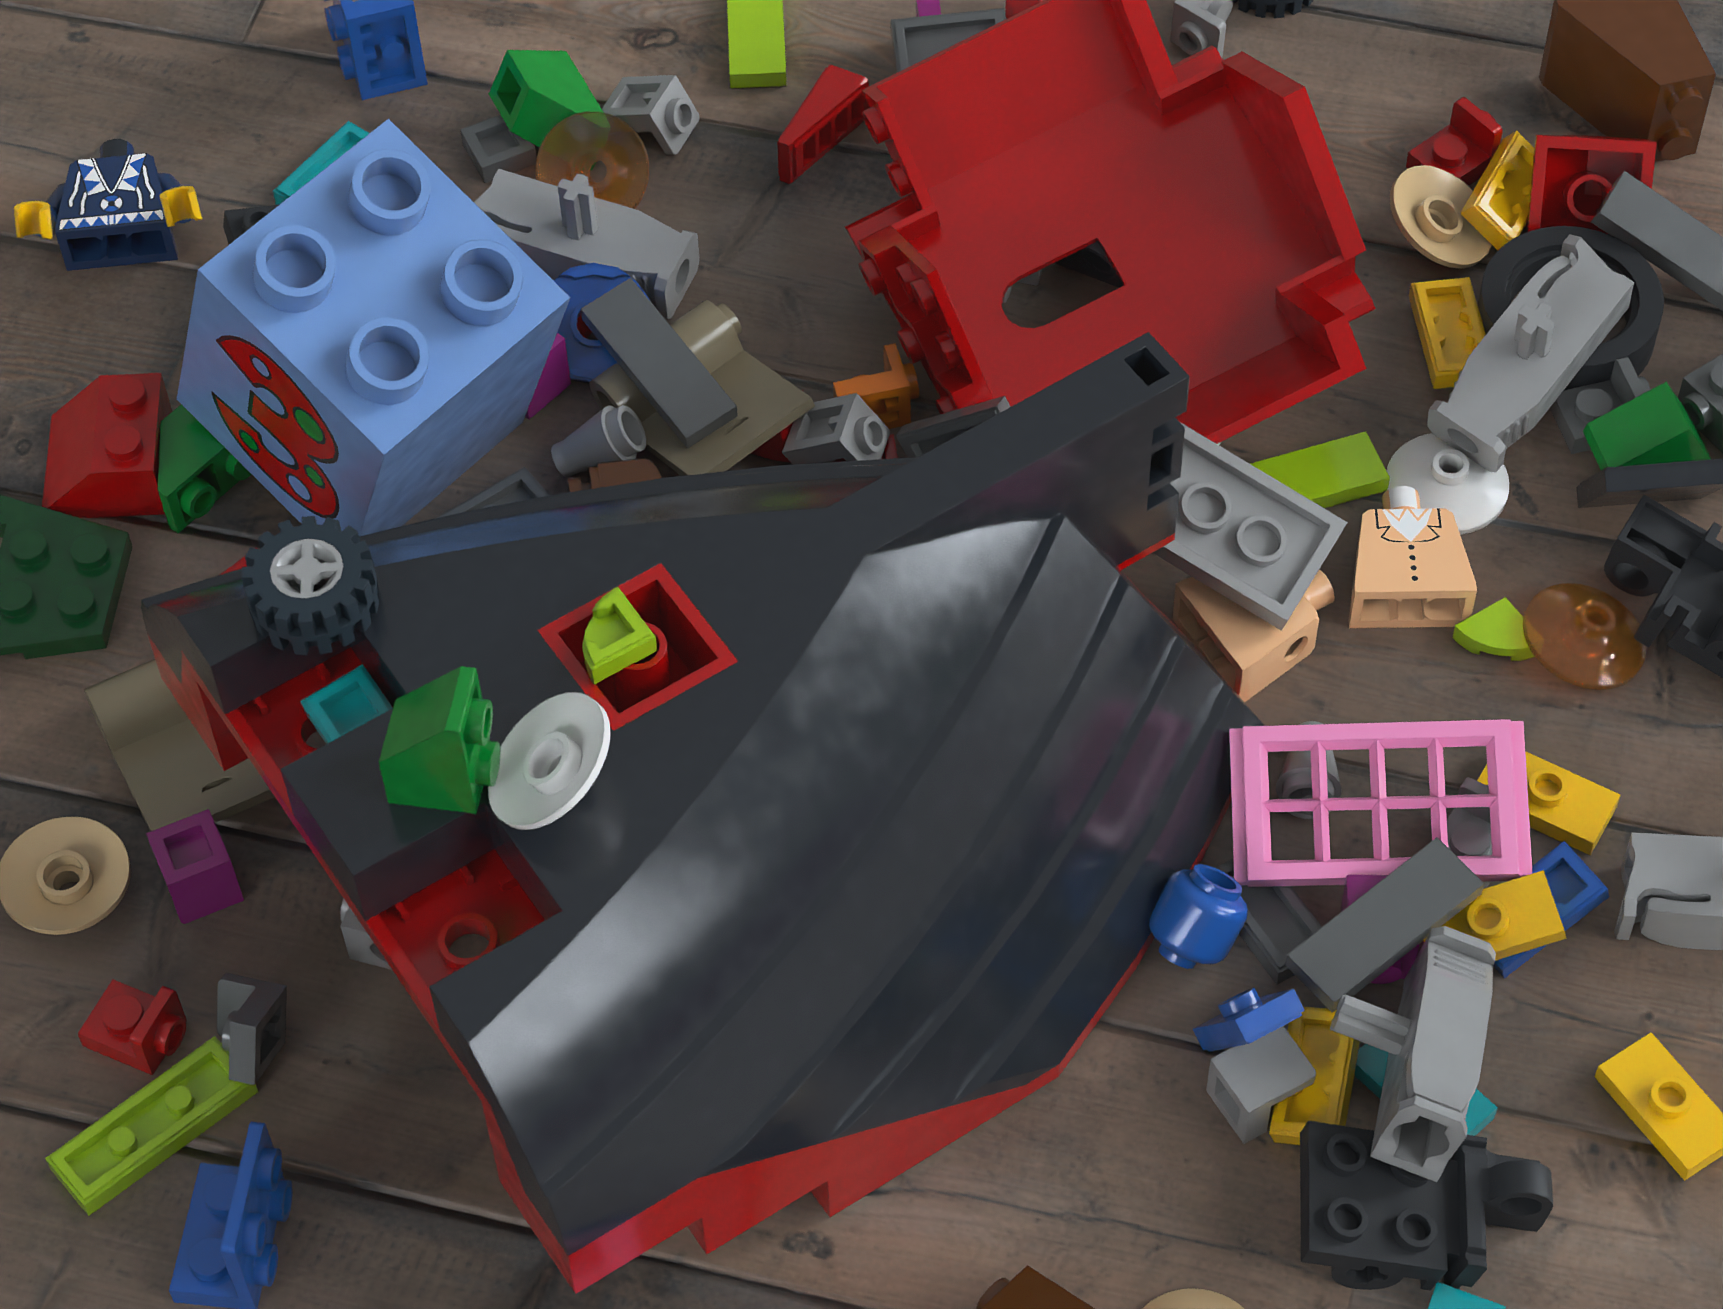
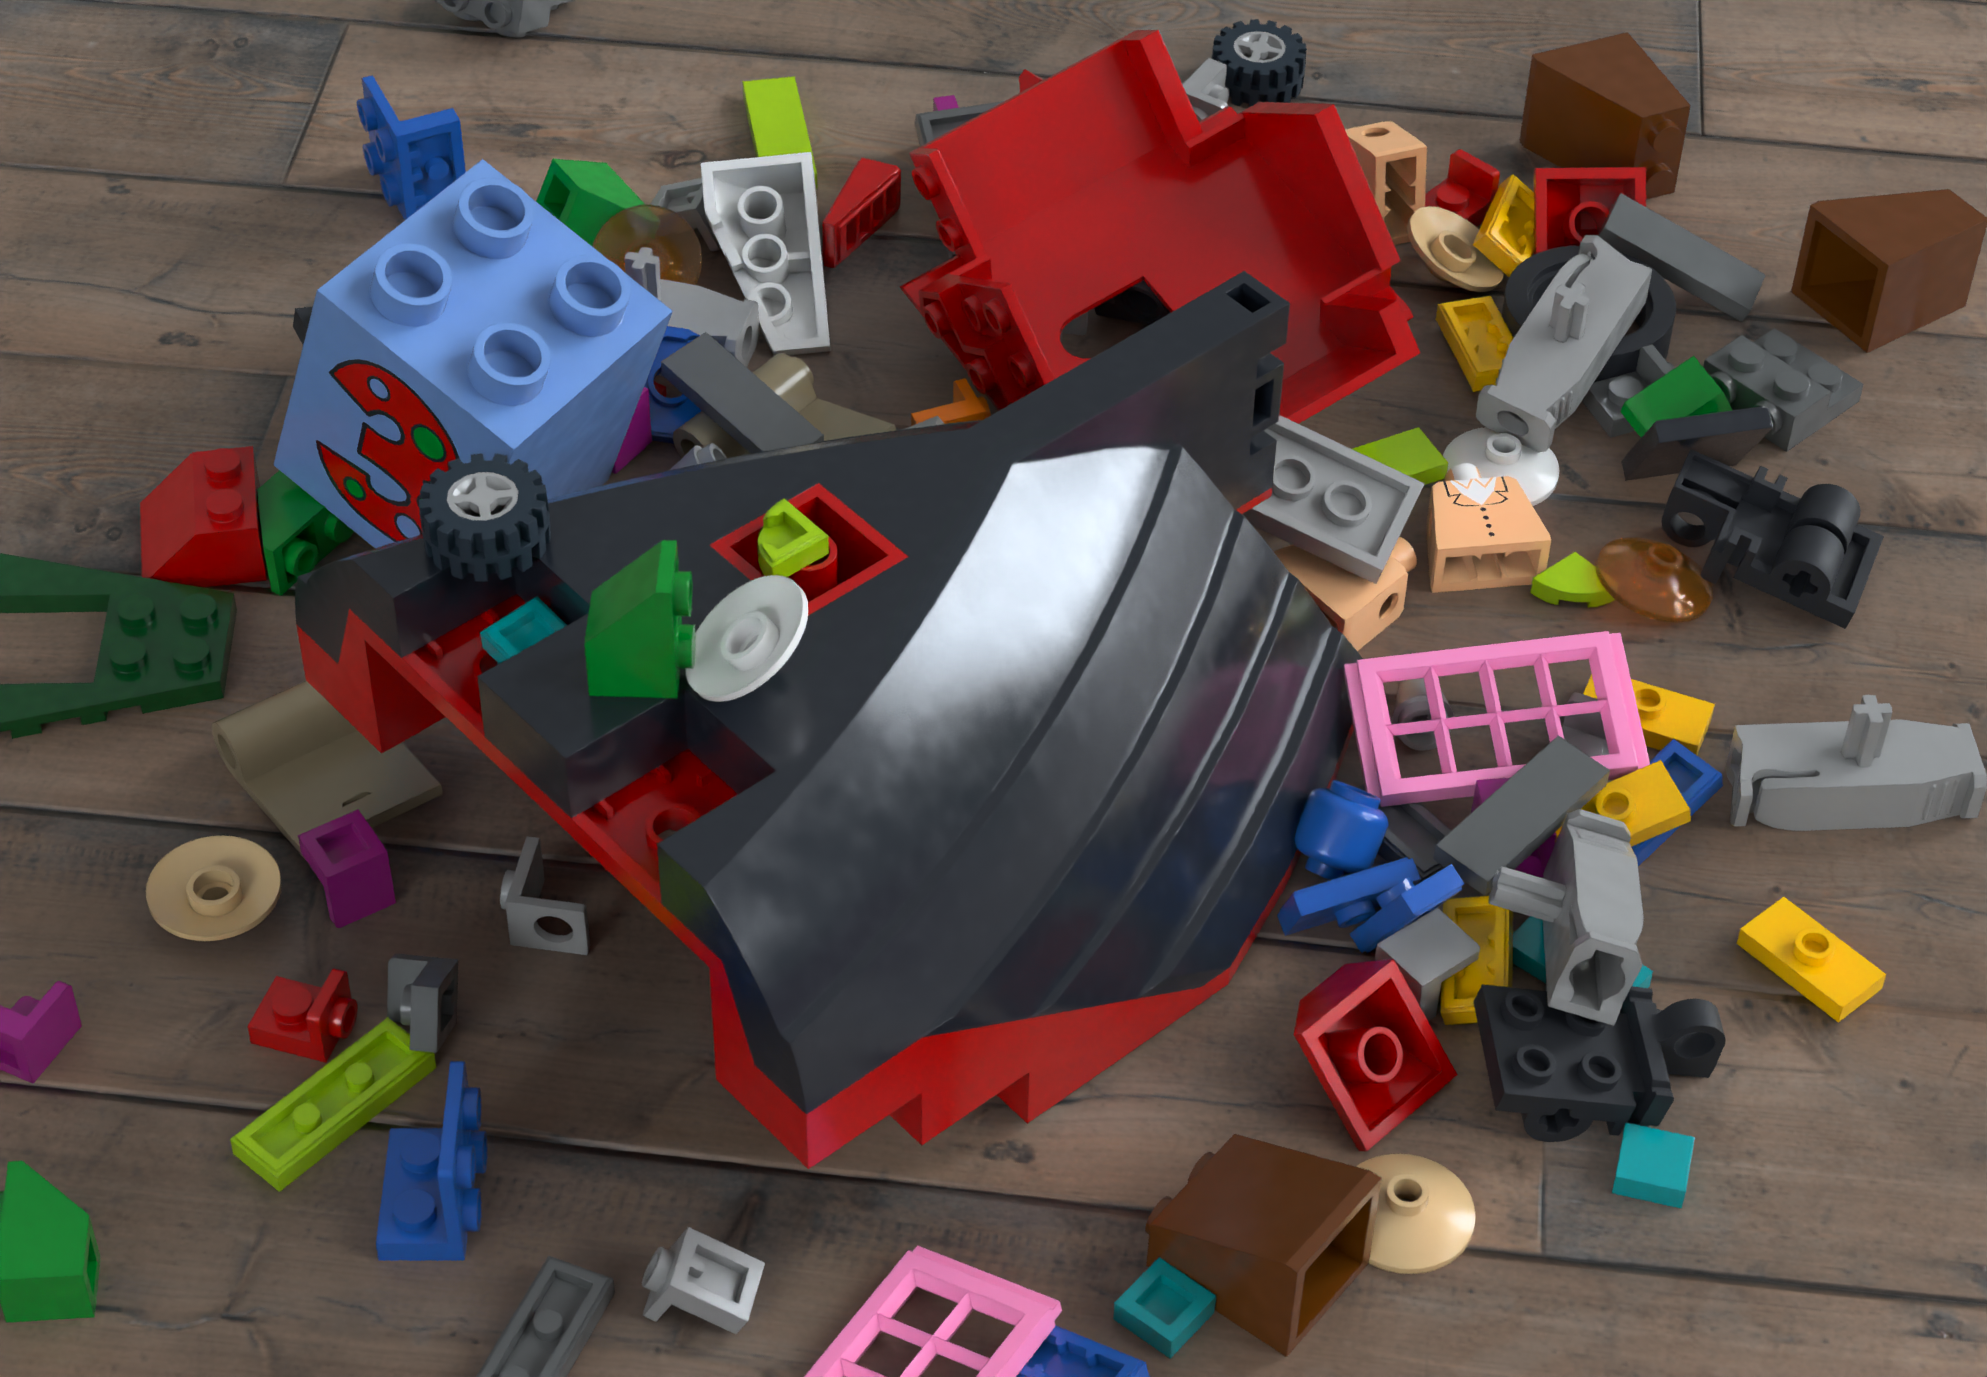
camera: 10 degrees left, 10 degrees down
(111, 211) = (181, 323): torso -> none
(724, 155) = (771, 238): none -> white wedge
(1184, 1173) = (1371, 1048): none -> red slope
(1195, 995) = (1344, 899): none -> blue plate
(1372, 109) = (1394, 171): none -> light nougat torso

